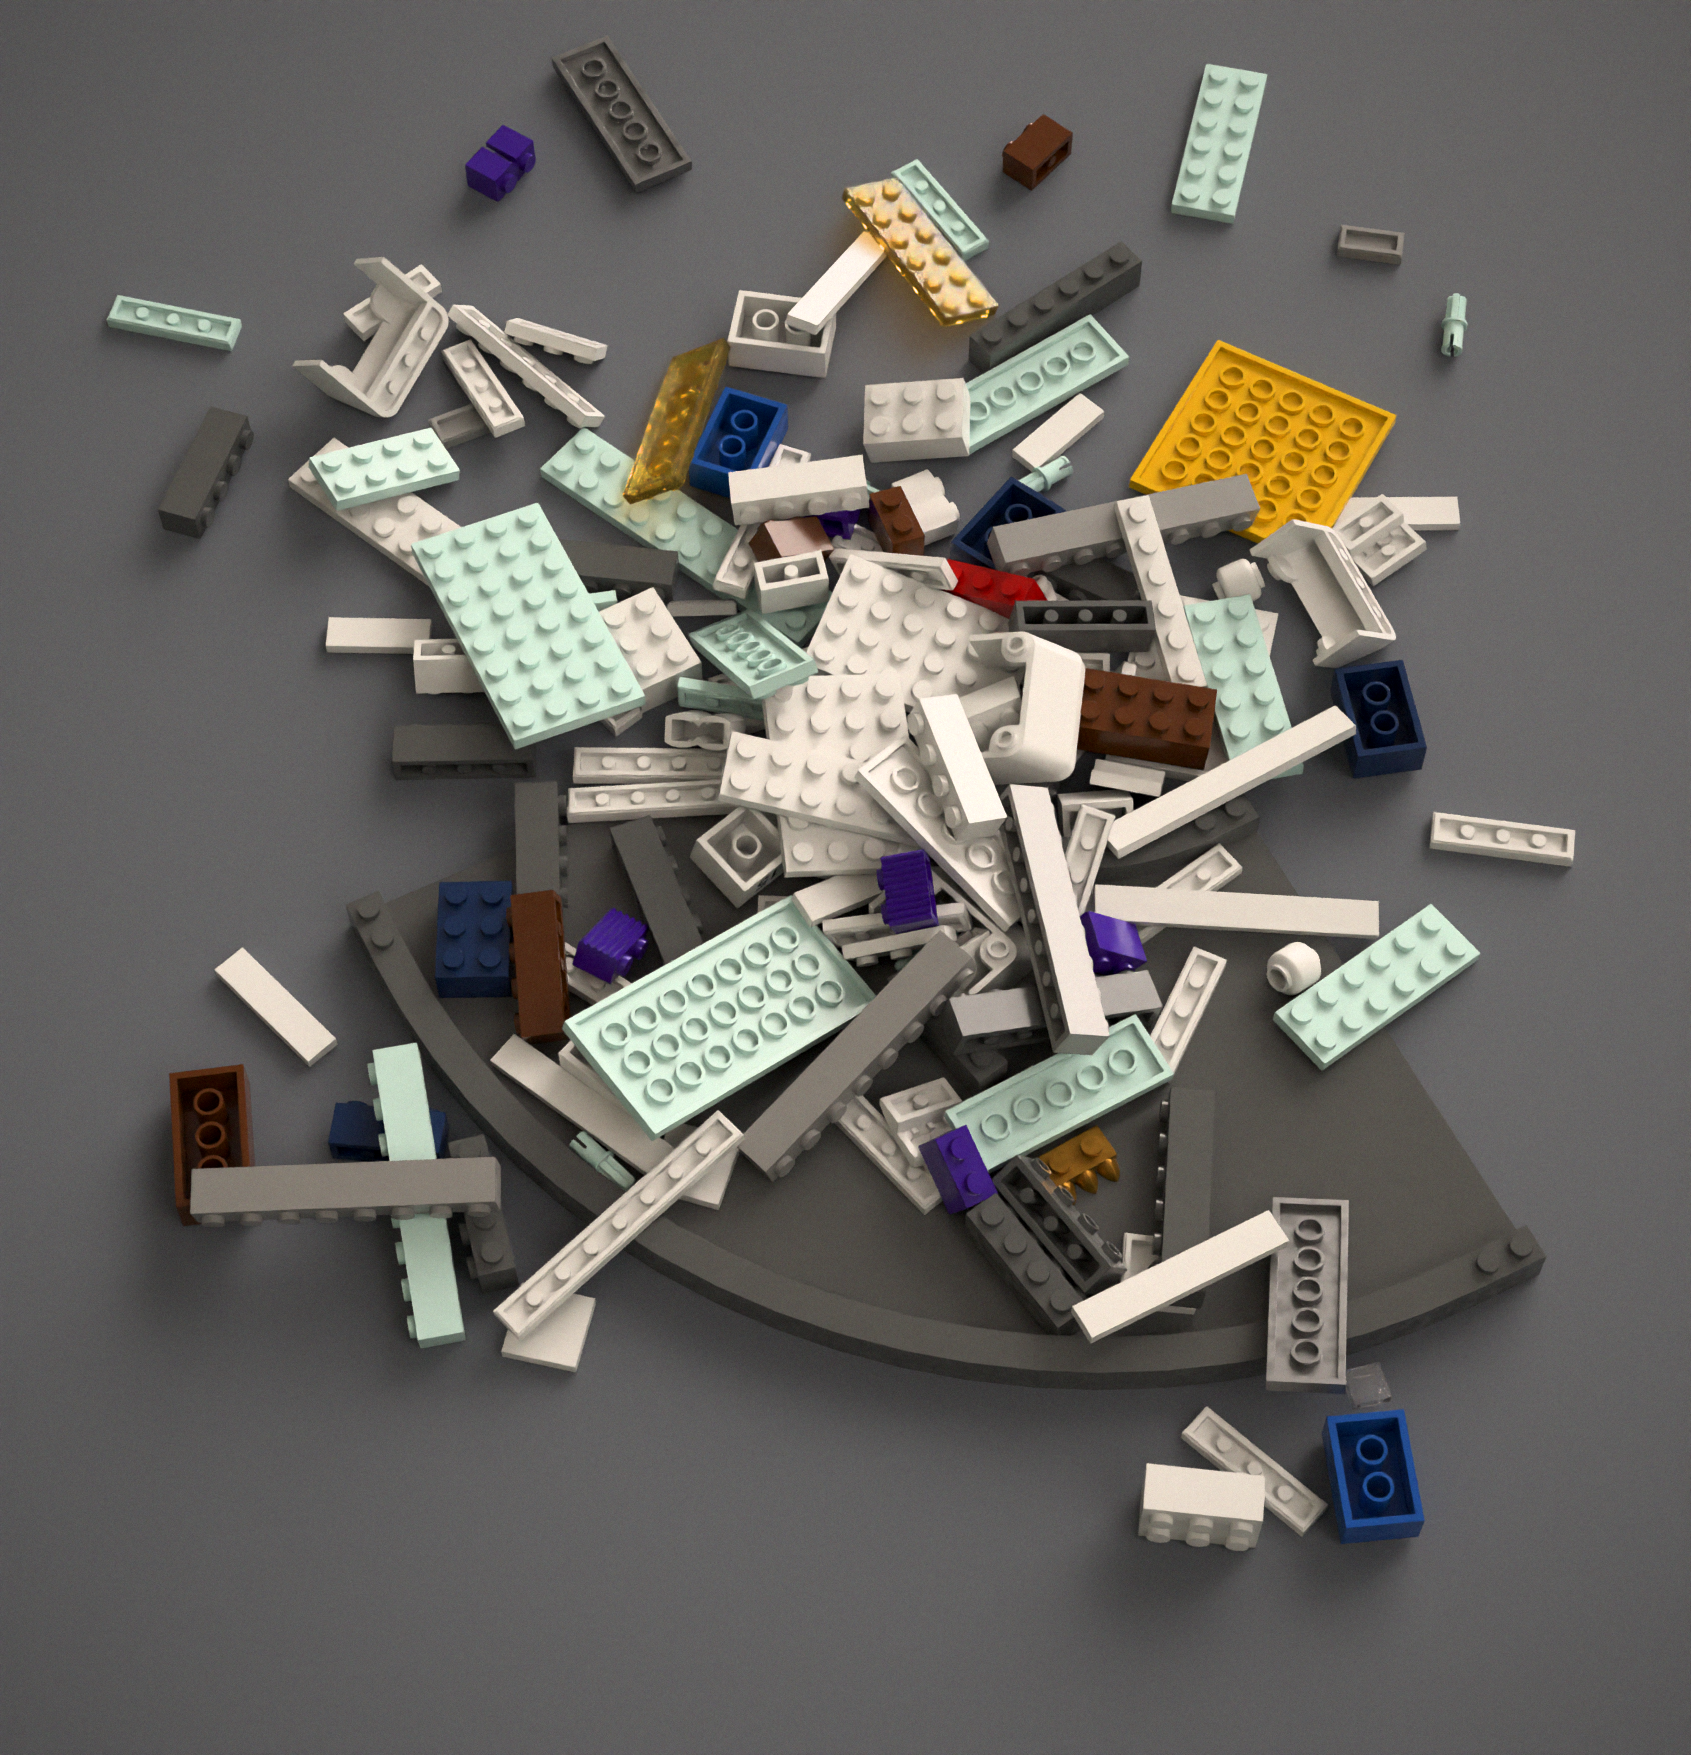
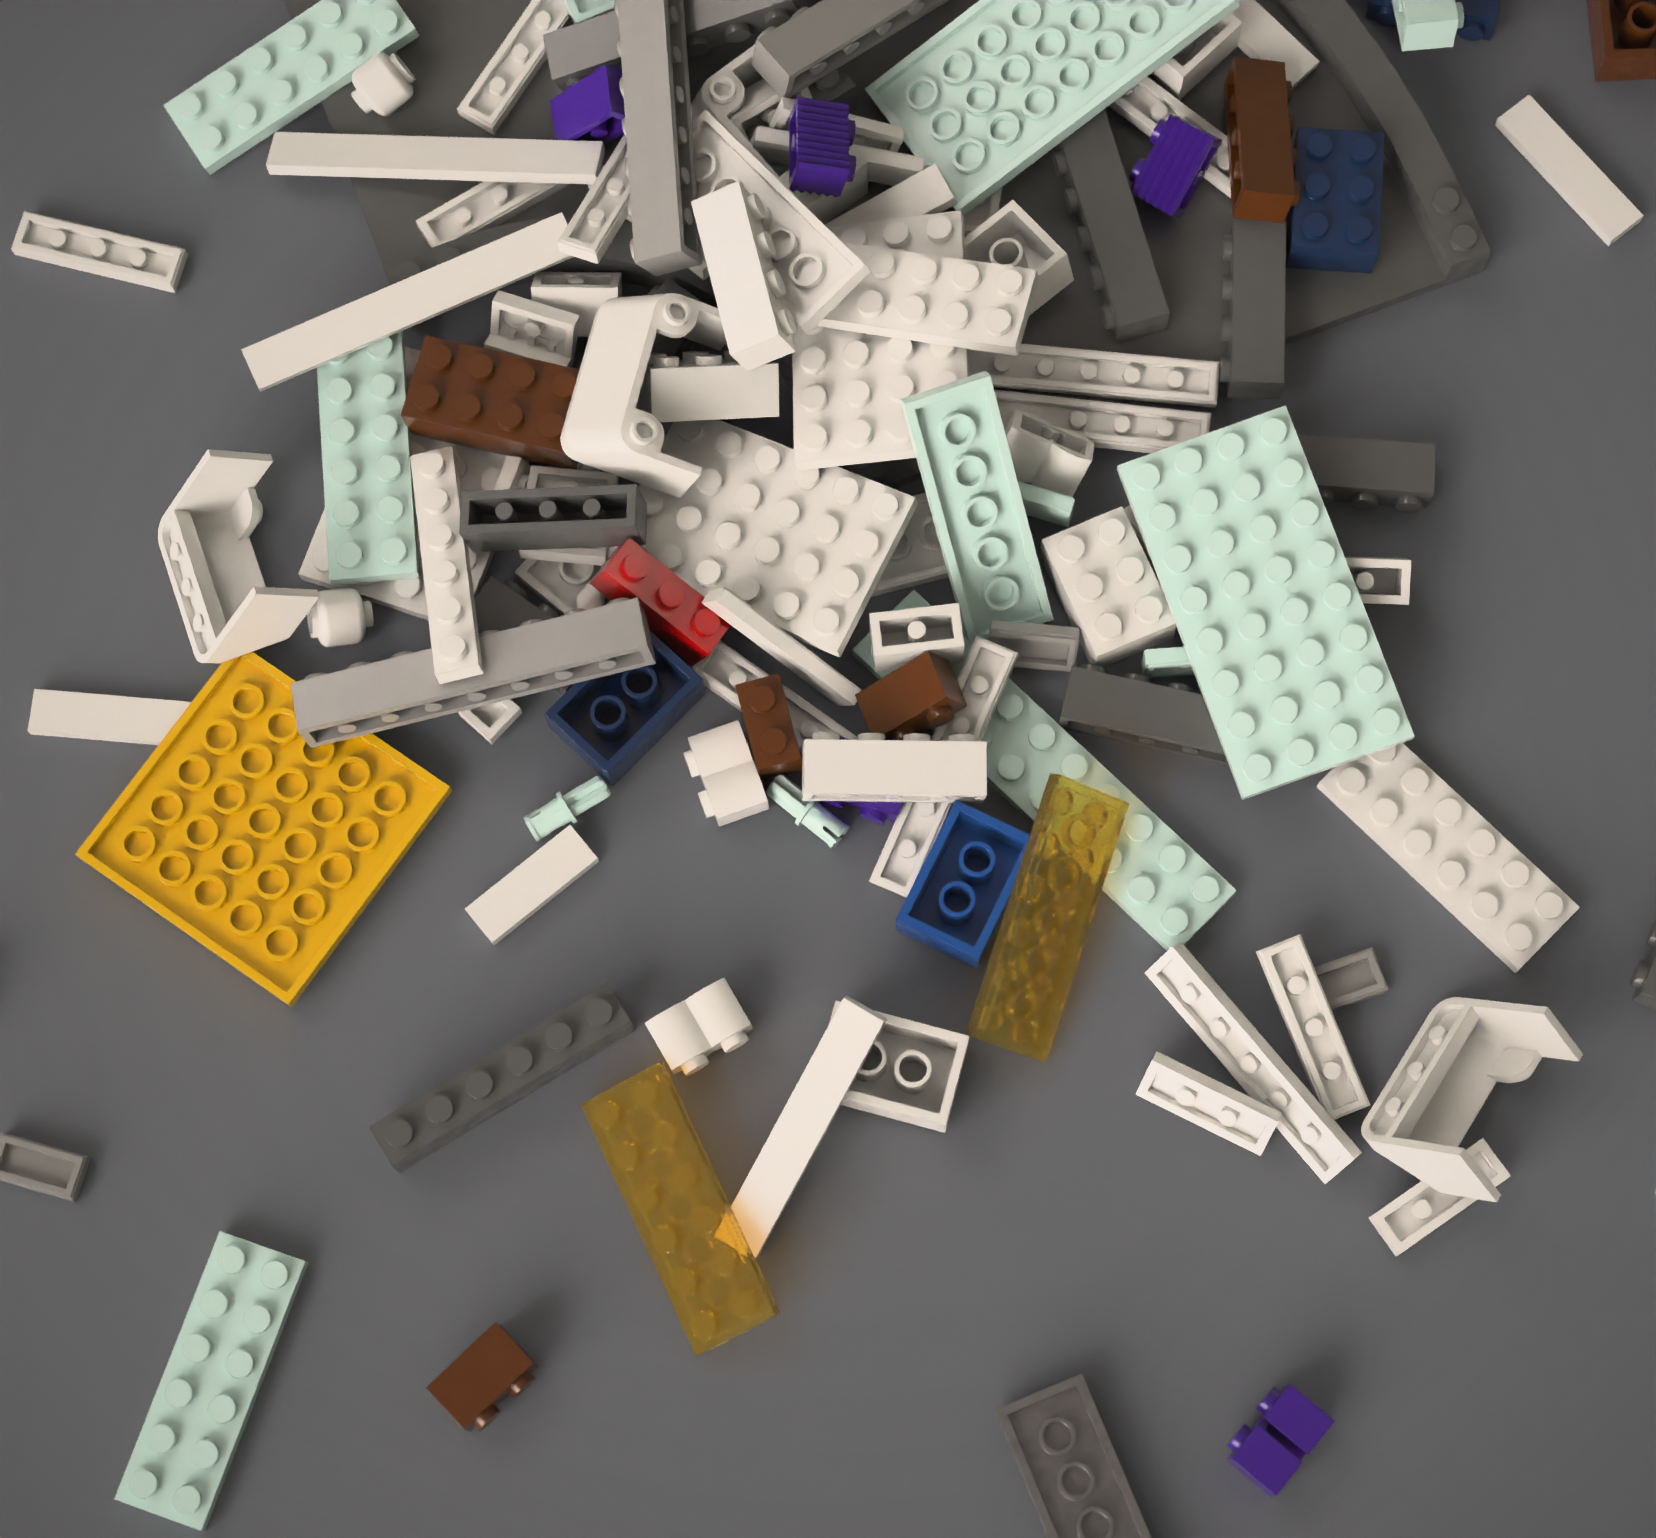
camera: 170 degrees left, 15 degrees up
(375, 635) = (1453, 658): white tile -> none
(383, 469) = (1450, 894): light aqua plate -> none
(917, 420) = (721, 892): white brick -> none
(922, 352) = (699, 1027): none -> white brick
(942, 210) = (640, 1296): light aqua tile -> none
(1040, 379) = (556, 963): light aqua plate -> none
(1379, 539) = (146, 668): white slope -> none
(1385, 718) = (206, 394): dark blue brick -> none

